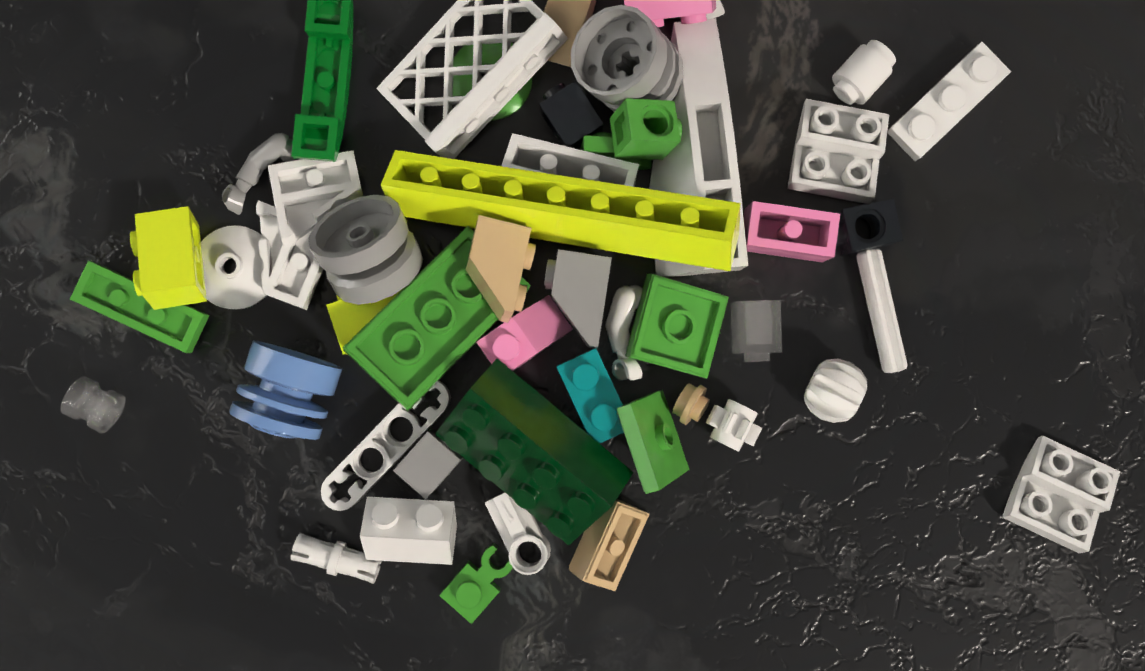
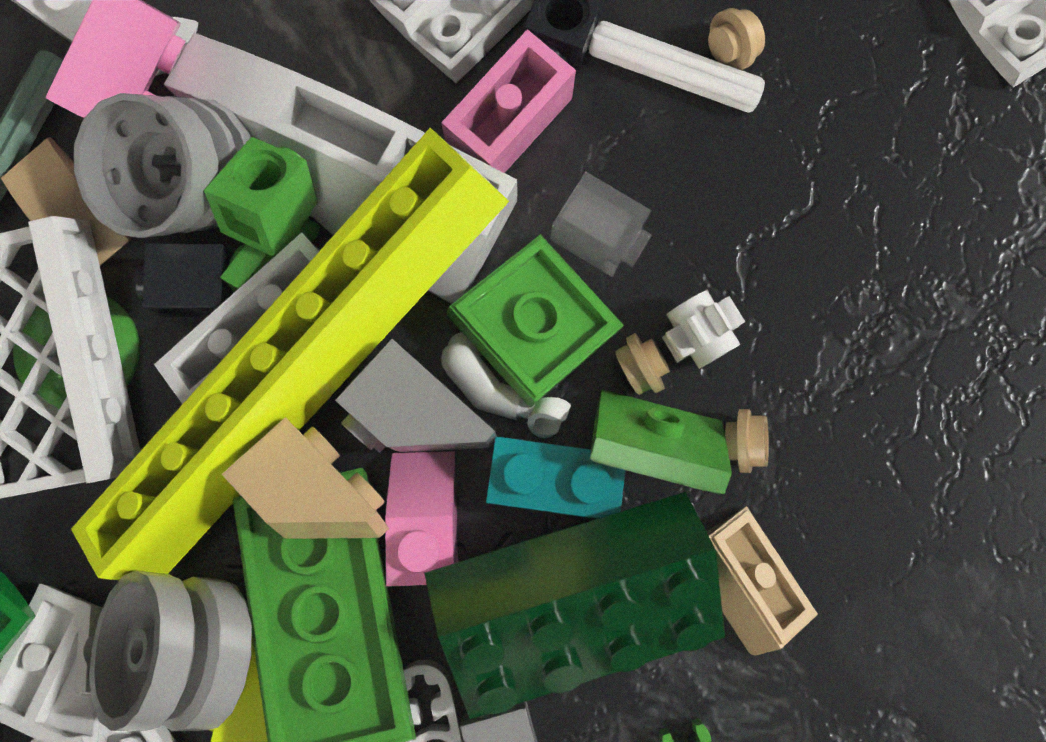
camera: 60 degrees left, 5 degrees down
(516, 527) = (660, 688): white piece -> none
(686, 490) = (748, 440): none -> tan plate
(835, 390) = (739, 179): white piece -> none
(921, 335) = (736, 37): none -> tan plate

